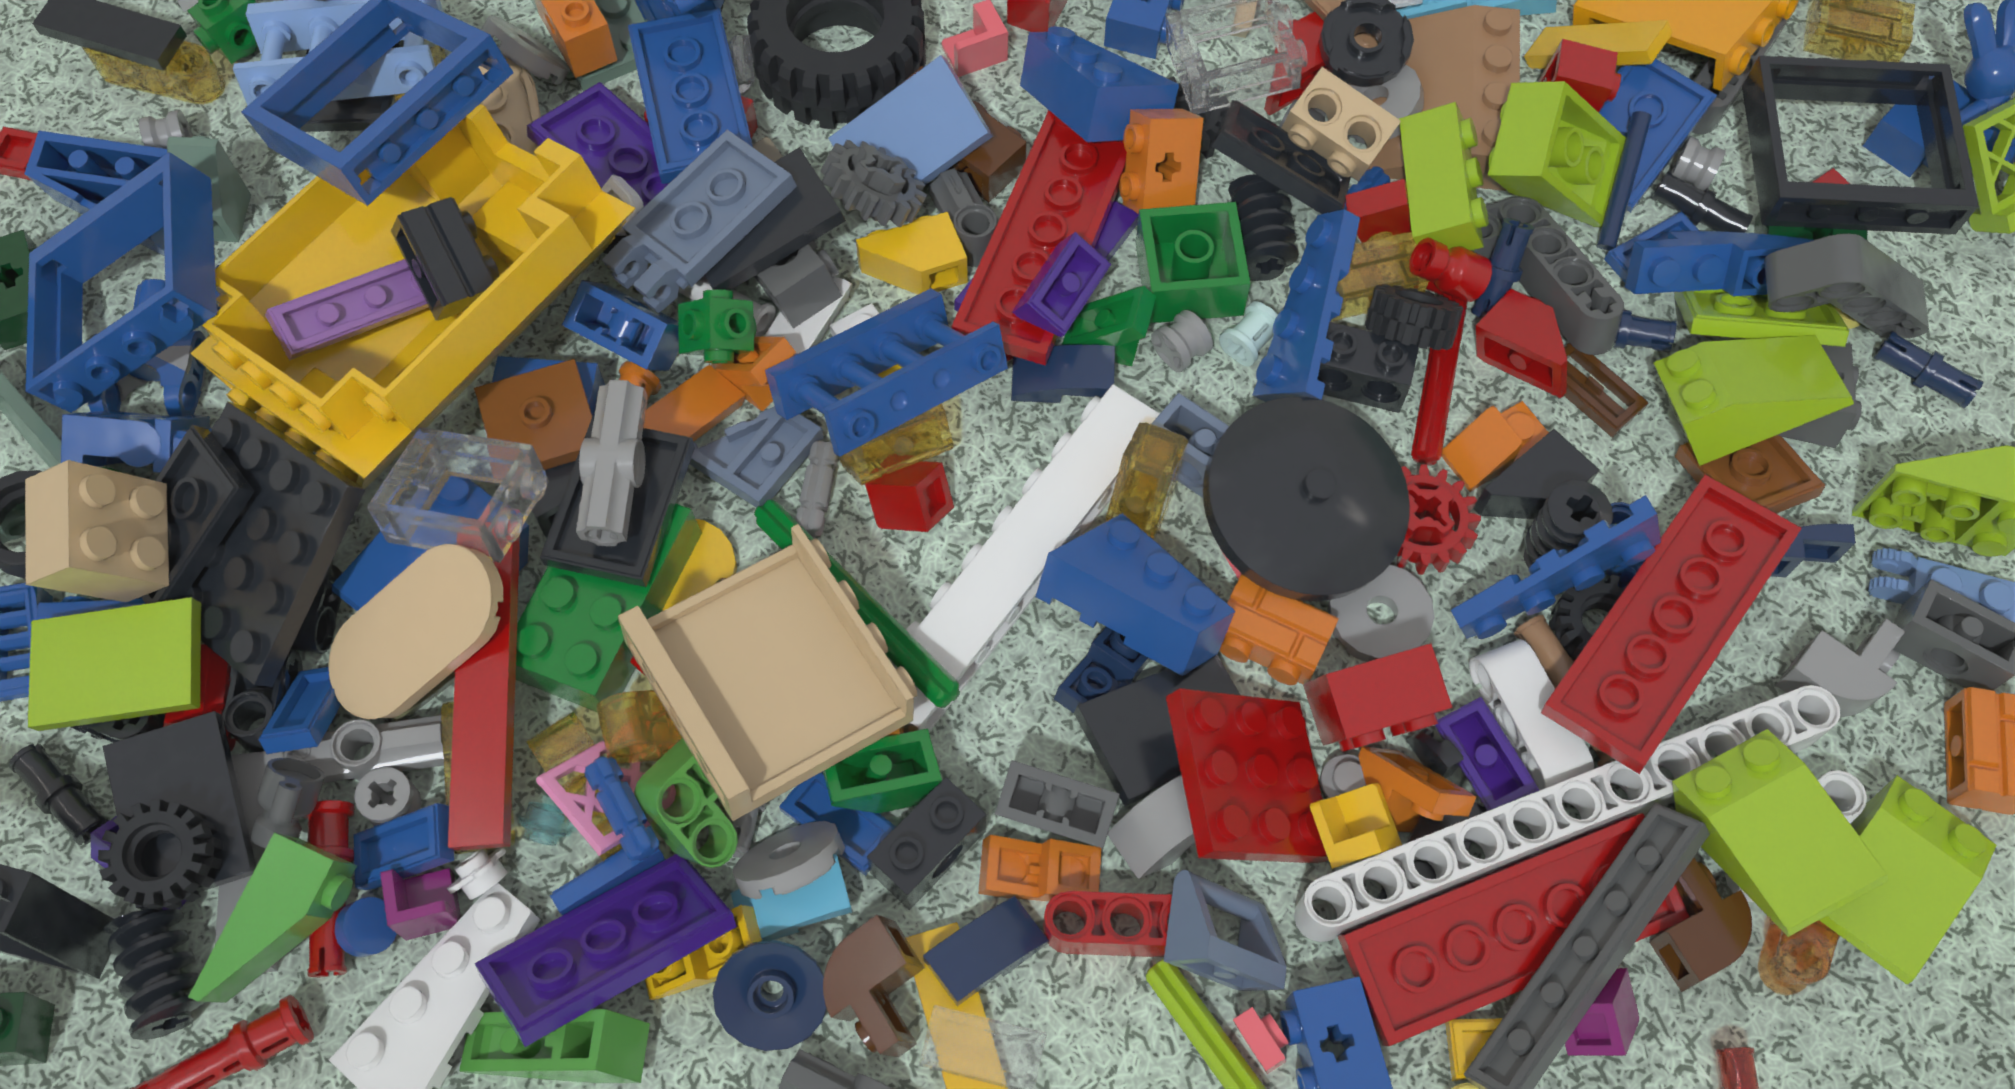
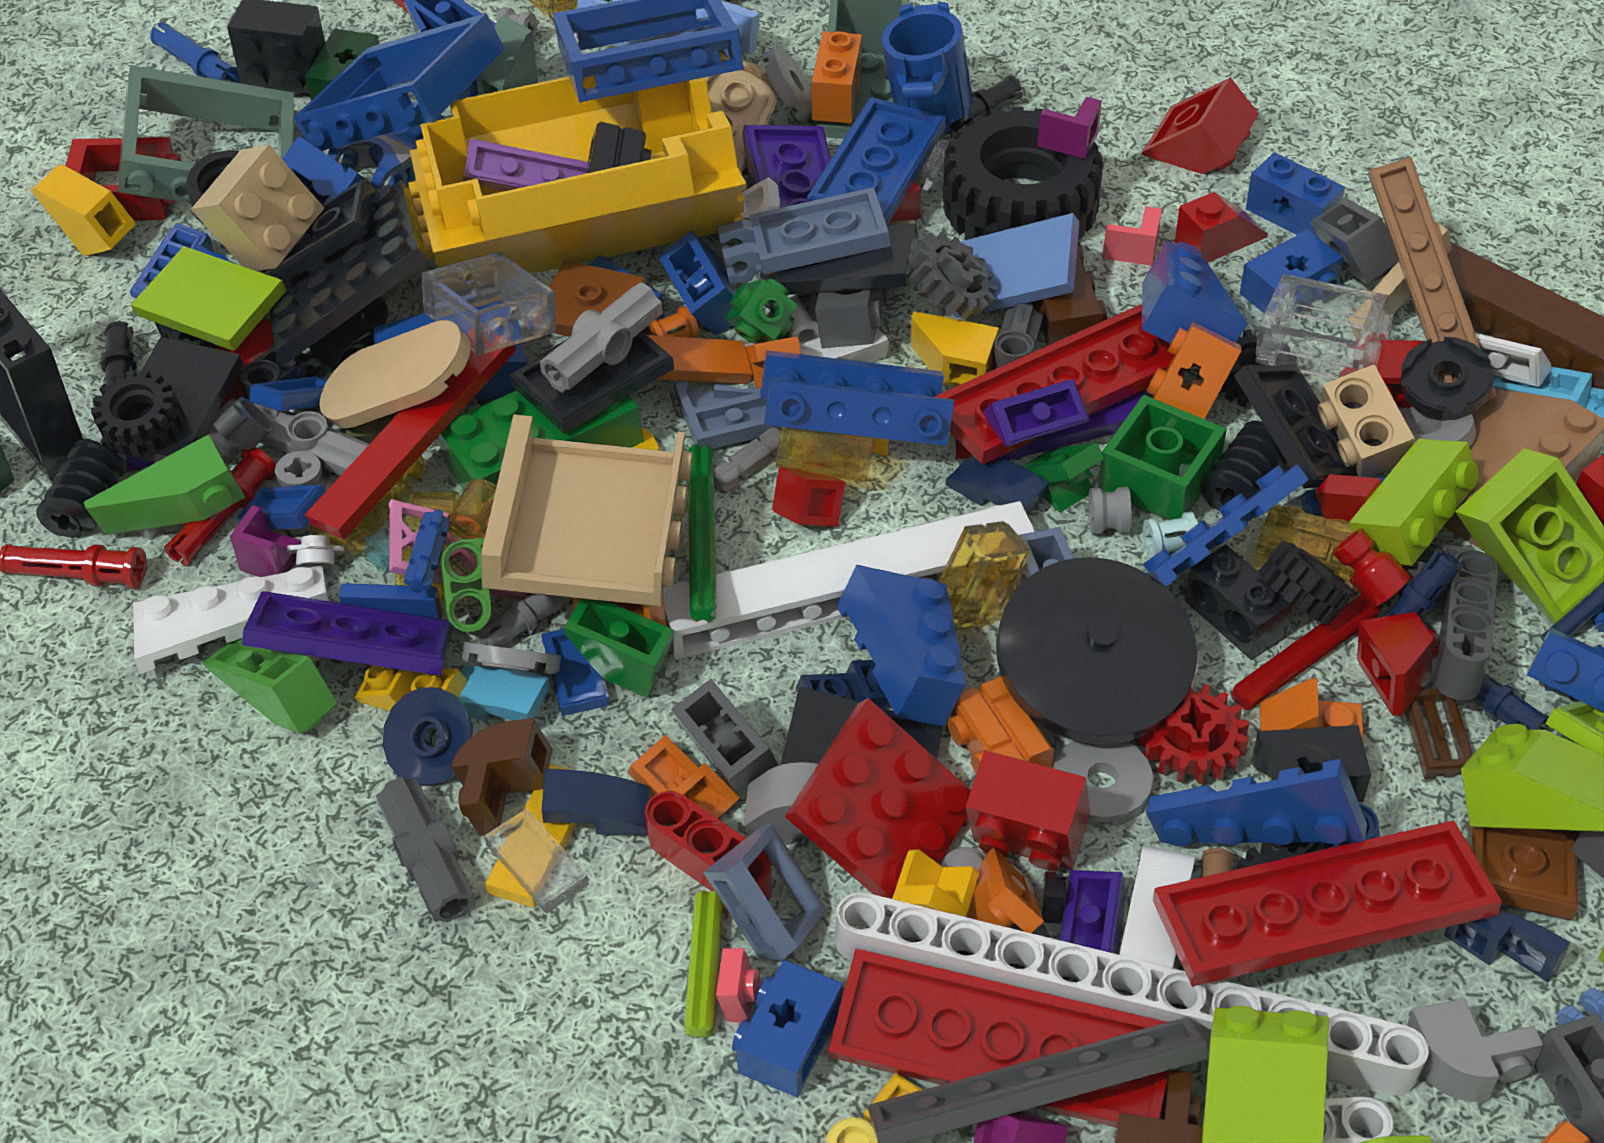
camera: 40 degrees right, 15 degrees down
(363, 927) = (215, 543): blue tile -> none
(927, 843) = (615, 711): black brick -> none

